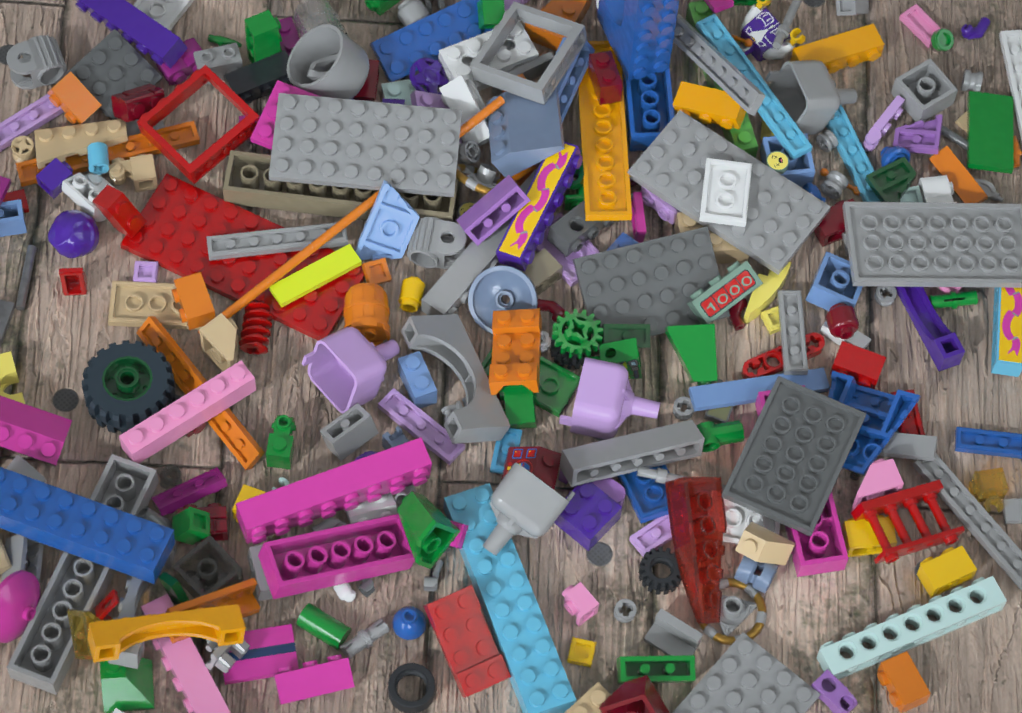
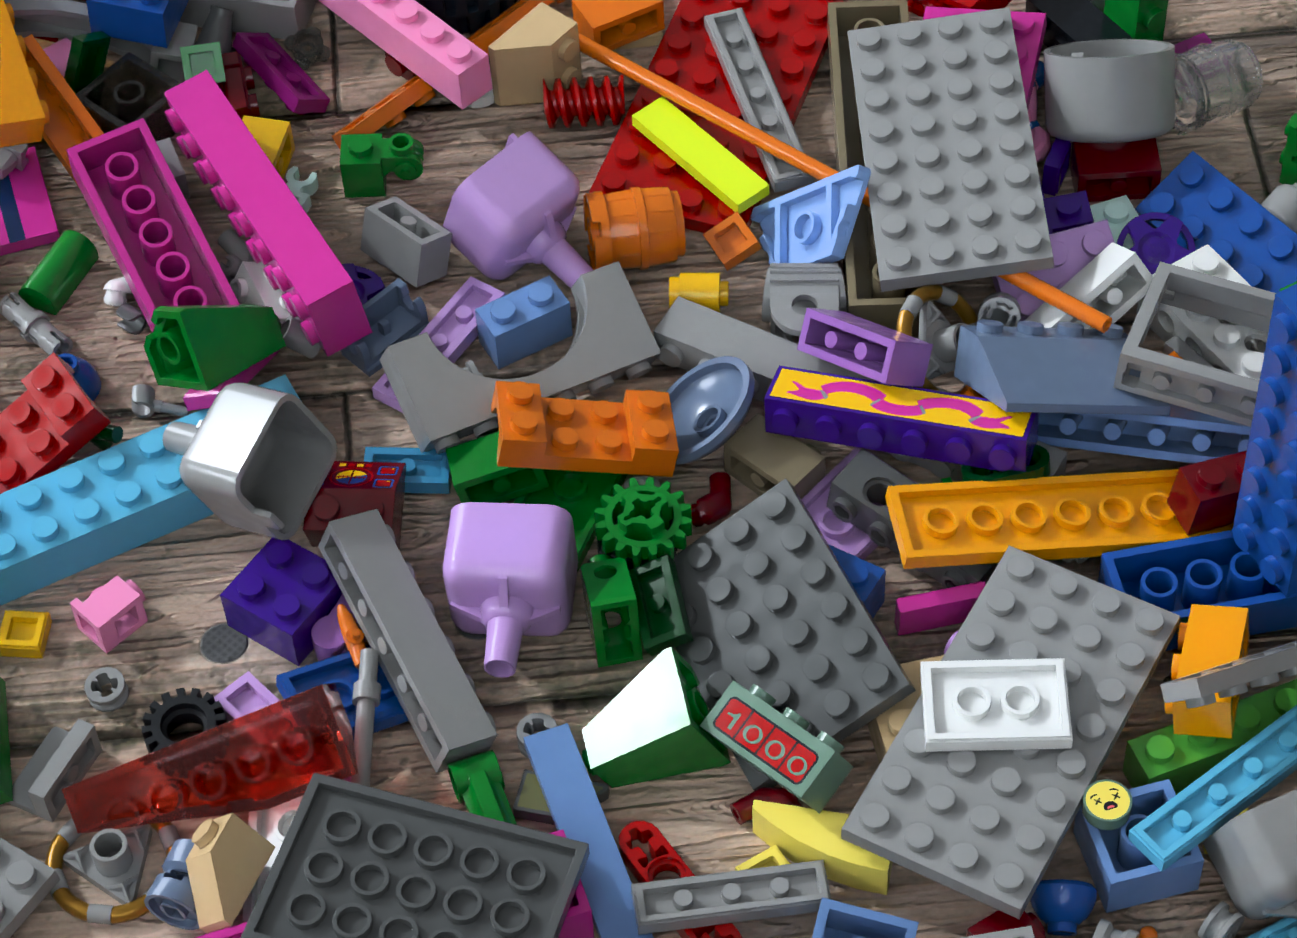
camera: 90 degrees right, 10 degrees down
(624, 479) = (351, 633): none -> orange helmet

